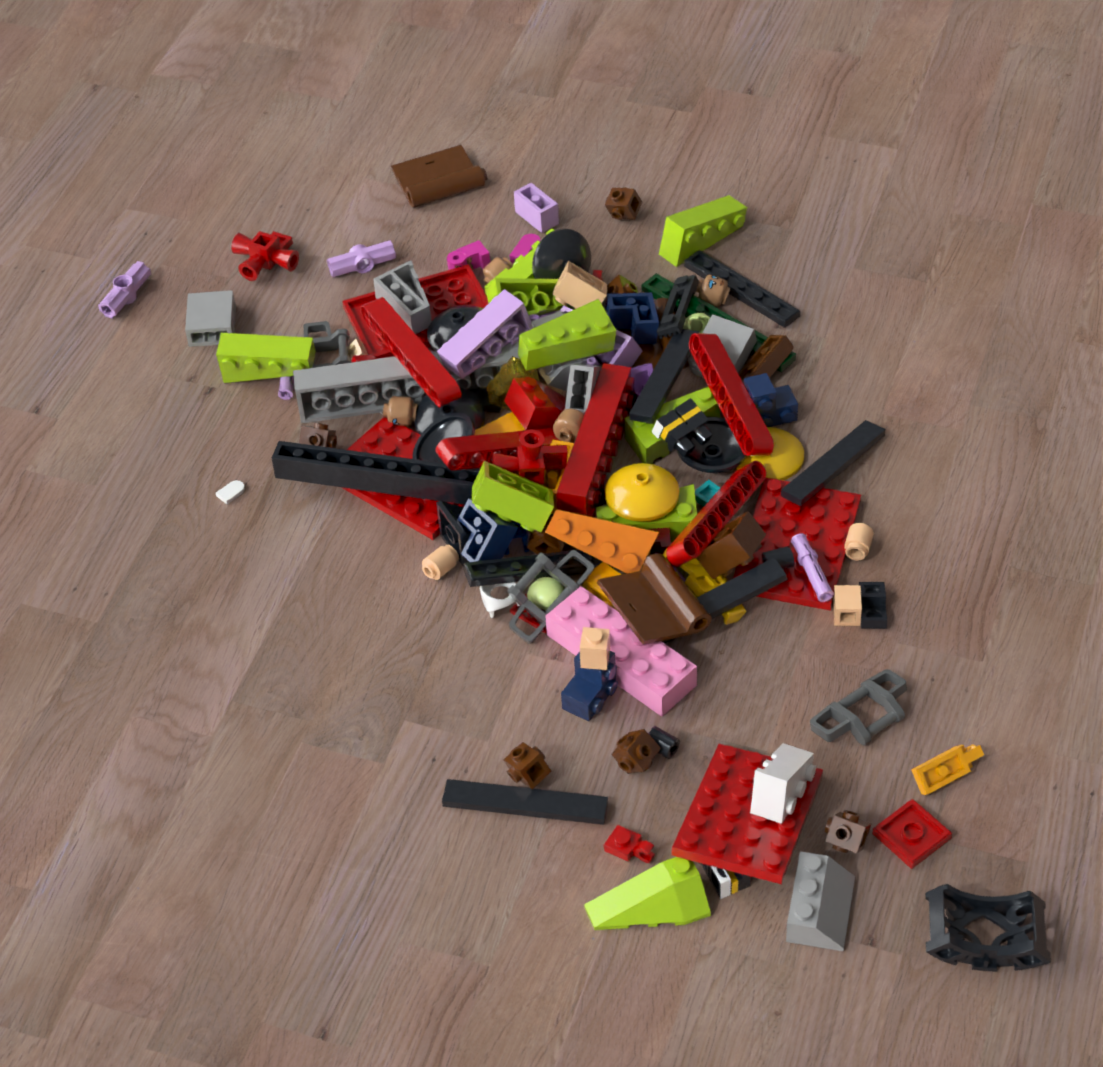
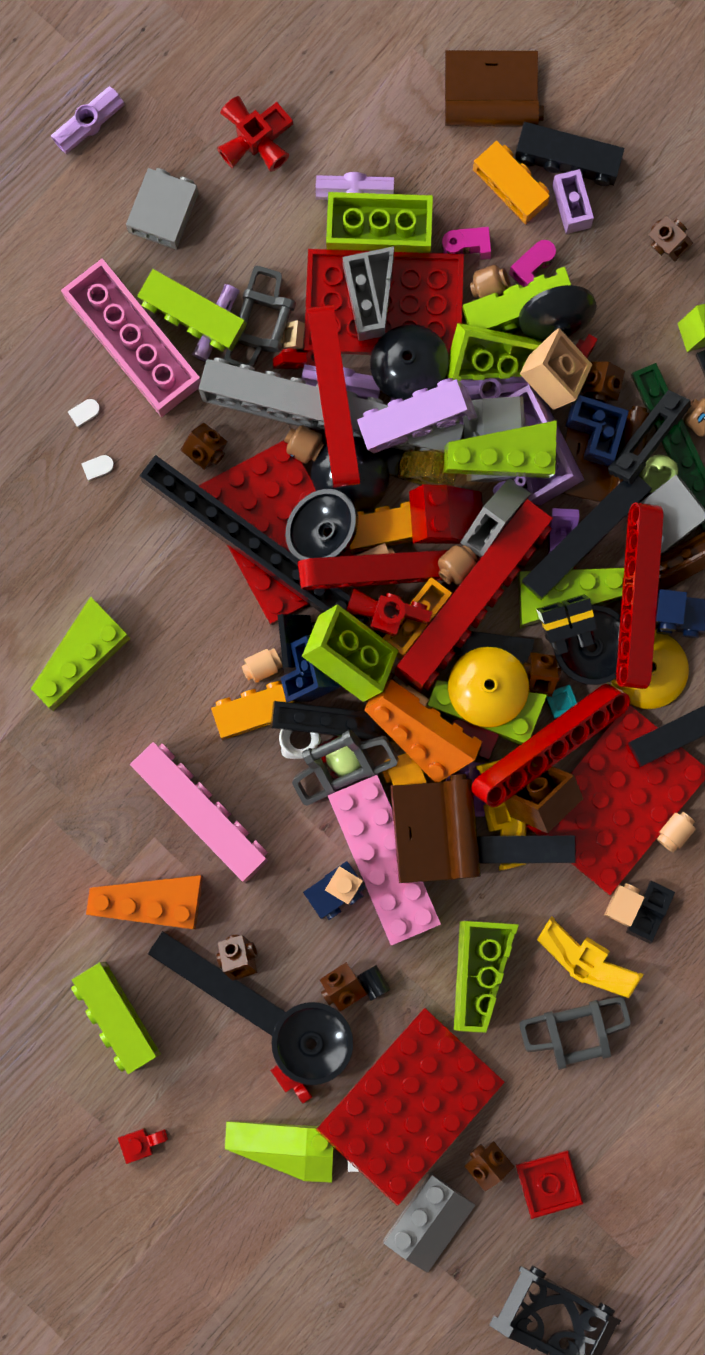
camera: 25 degrees right, 35 degrees up
(202, 462) = (84, 412): none -> white piece
(223, 395) = (131, 337): none -> bright pink brick
(274, 610) = (80, 654): none -> lime wedge
(369, 263) = (379, 222): none -> lime brick
(422, 759) = (158, 902): none -> orange wedge
(437, 850) = (116, 1017): none -> lime brick
(438, 671) = (199, 813): none -> bright pink brick
(444, 597) = (248, 712): none -> light orange brick
(482, 216) = (511, 181): none -> light orange brick
(499, 189) = (568, 152): none -> black brick
(510, 956) = (138, 1144): none -> red plate
(631, 800) = (332, 1041): none -> black dish
(684, 473) = (542, 673): none -> reddish brown brick
(750, 691) = (480, 970): none -> lime wedge
(781, 782) = (451, 1103): white wedge -> none
(783, 556) = (582, 827): black piece -> none
(808, 559) = (610, 853): lavender pin -> none
(841, 654) = (587, 961): none -> yellow plate
(945, 767) = (617, 1134): light orange hinge -> none

